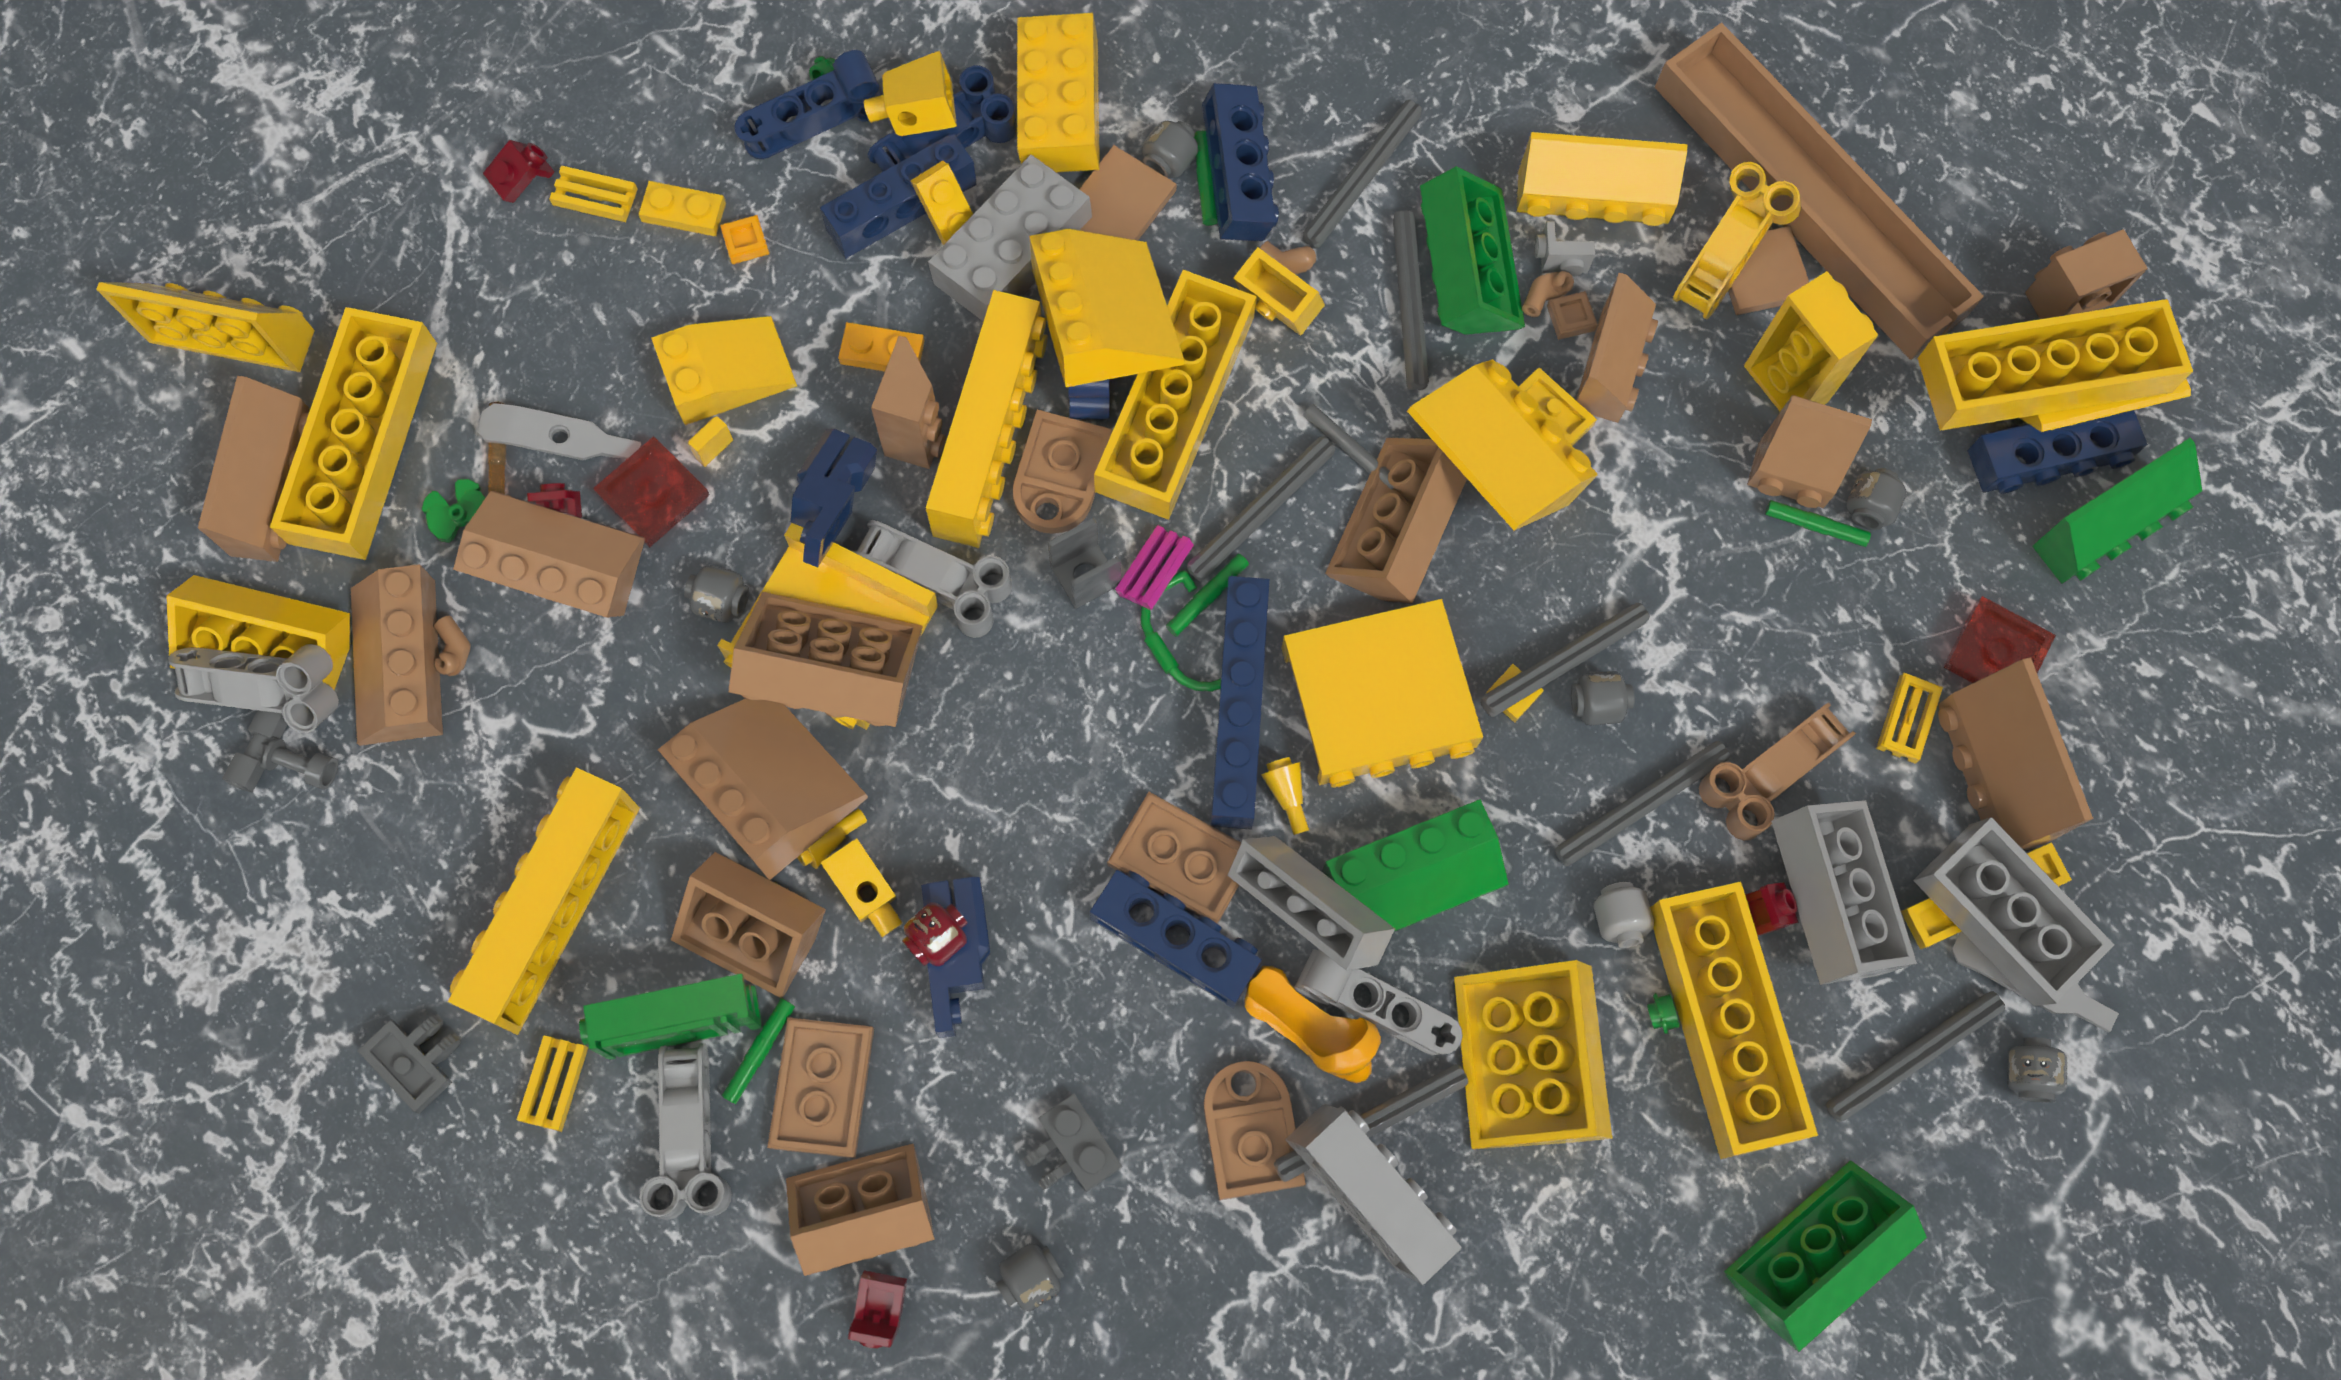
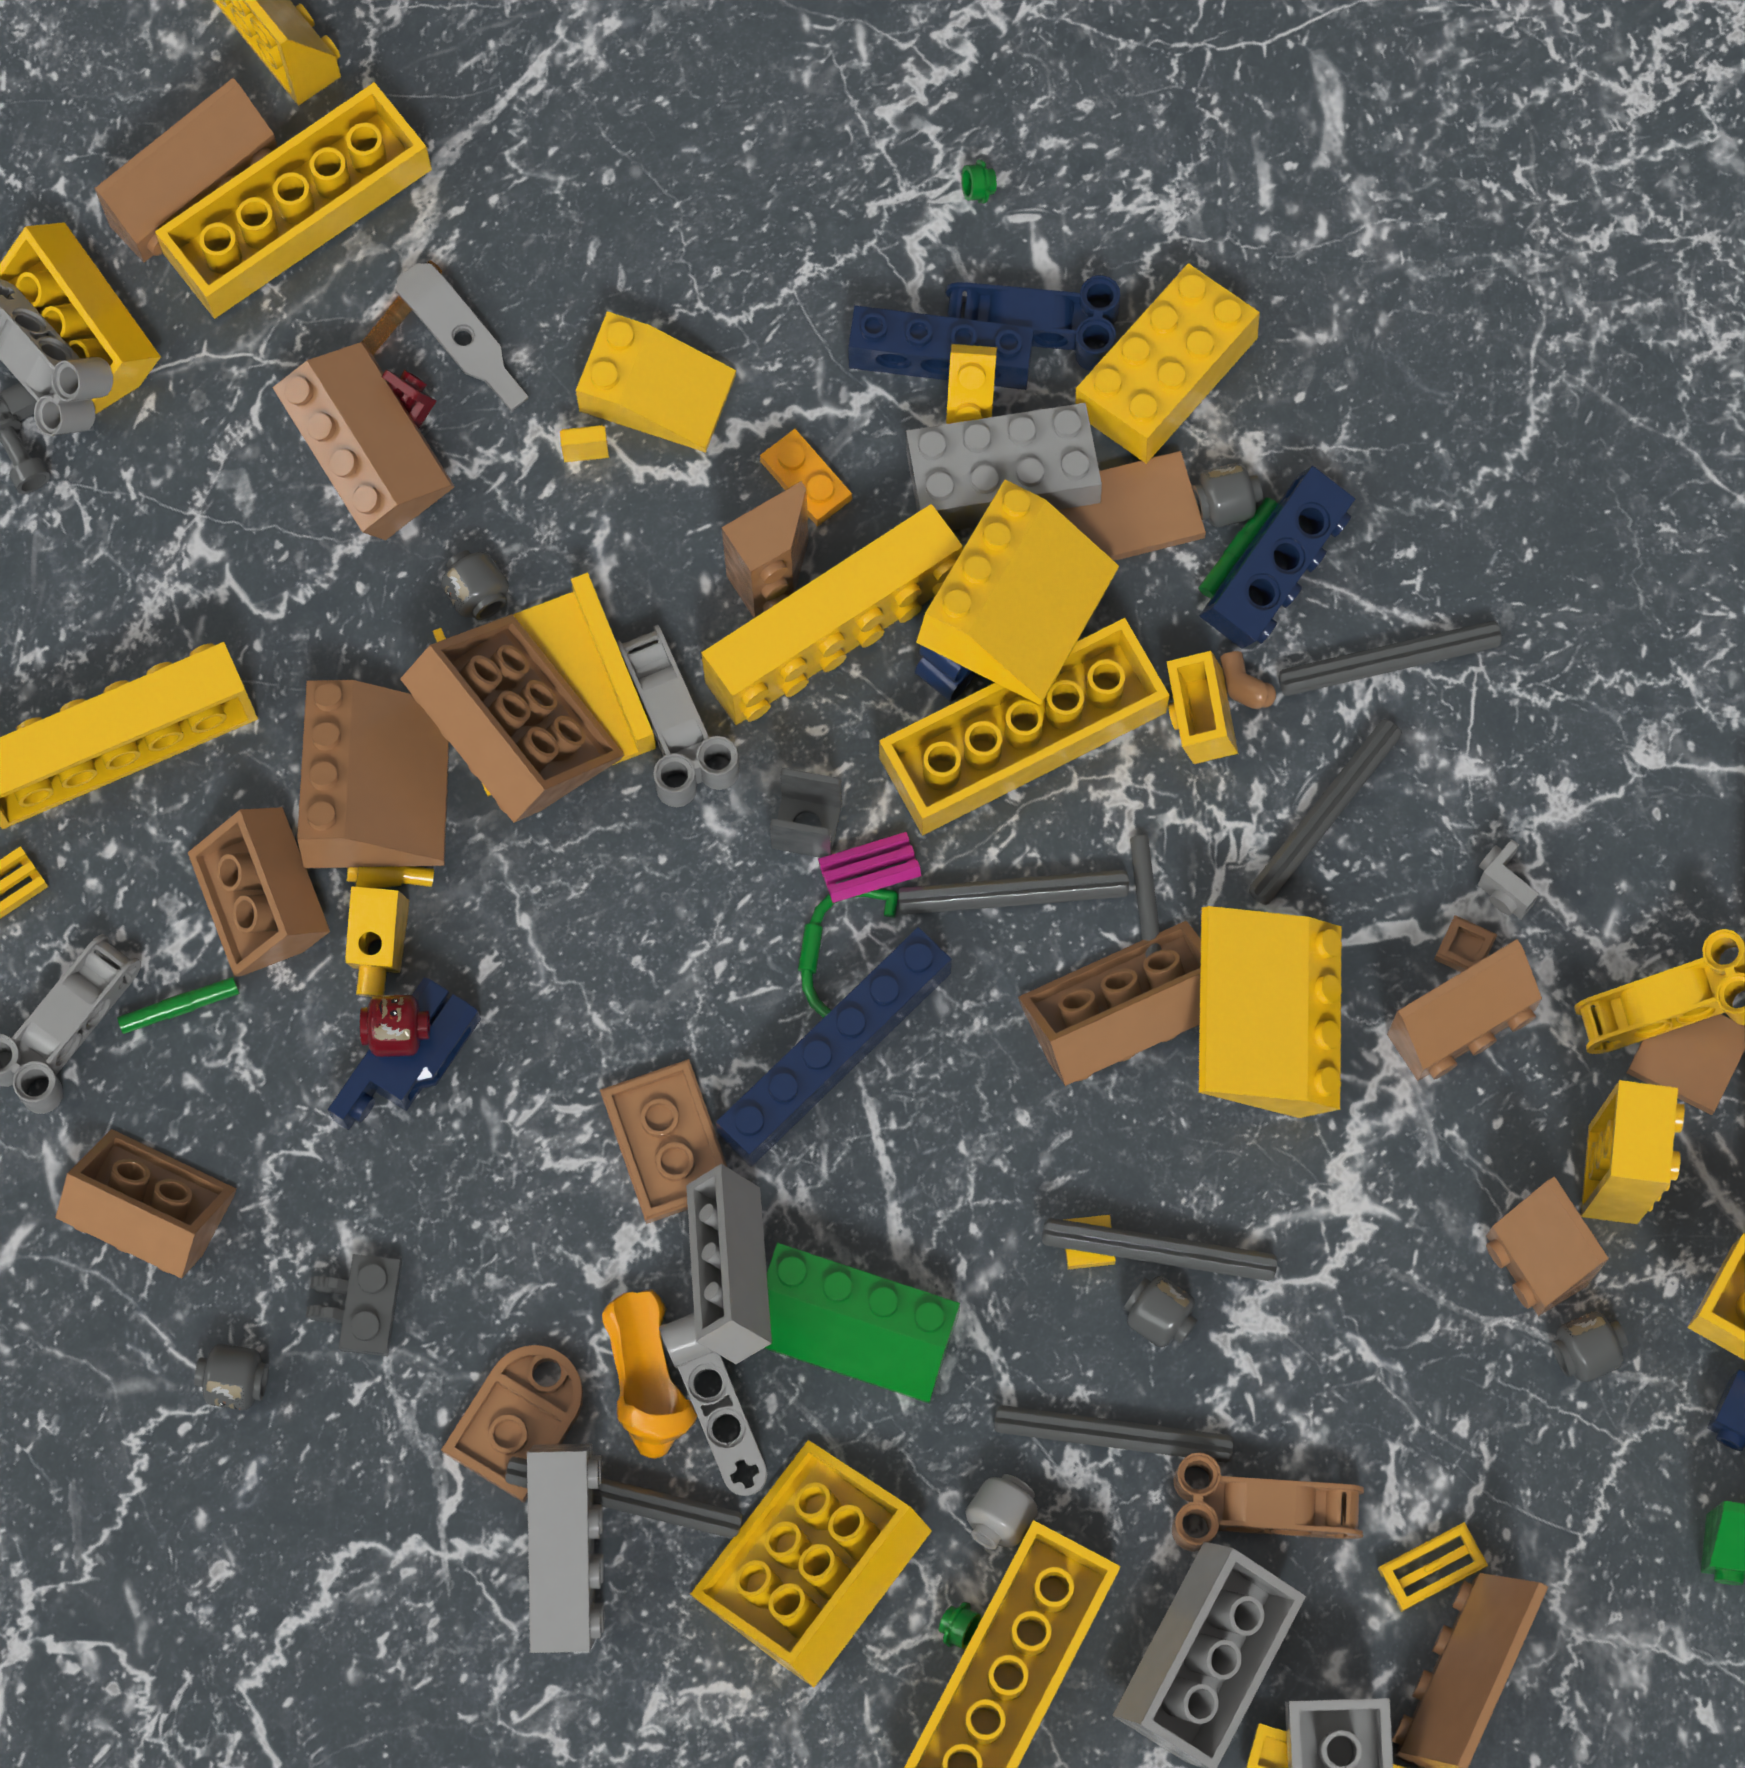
camera: 45 degrees right, 0 degrees up
(396, 656) = (170, 425): medium nougat slope -> none
(445, 519) = (308, 336): green piece -> none
(456, 649) = (223, 458): medium nougat arm -> none
(516, 168) = (630, 61): dark red bracket -> none
(571, 175) = (658, 108): yellow tile -> none
(651, 491) = (497, 449): clear red plate -> none
(670, 1017) = (129, 916): green door -> none
(682, 208) = (743, 209): yellow plate -> none
(744, 239) = (773, 281): light orange tile -> none
(821, 1088) = (202, 1078): medium nougat tile -> none
(827, 490) = (637, 568): dark blue plate -> none
(845, 86) = (982, 216): dark blue piece -> none
(878, 1309) = (90, 1296): dark red bracket -> none
(915, 97) = (1028, 269): yellow torso -> none
(1058, 470) = (860, 710): medium nougat tile -> none
(1131, 889) = (569, 1134): dark blue brick -> none
(1206, 595) = (894, 930): green piece -> none
(1286, 786) = (811, 1152): yellow cone -> none
(1383, 692) = (965, 1142): yellow panel -> none
(1471, 254) = (1419, 815): green slope -> none
(1546, 288) = (1461, 902): medium nougat arm -> none
(1558, 405) = (1364, 1019): yellow plate -> none
(1600, 178) = (1600, 841): yellow slope -> none
(1772, 908) = (1131, 1615): dark red bracket -> none
(1818, 523) = (1516, 1324): green piece -> none
(1996, 640) = (1581, 1577): clear red plate -> none

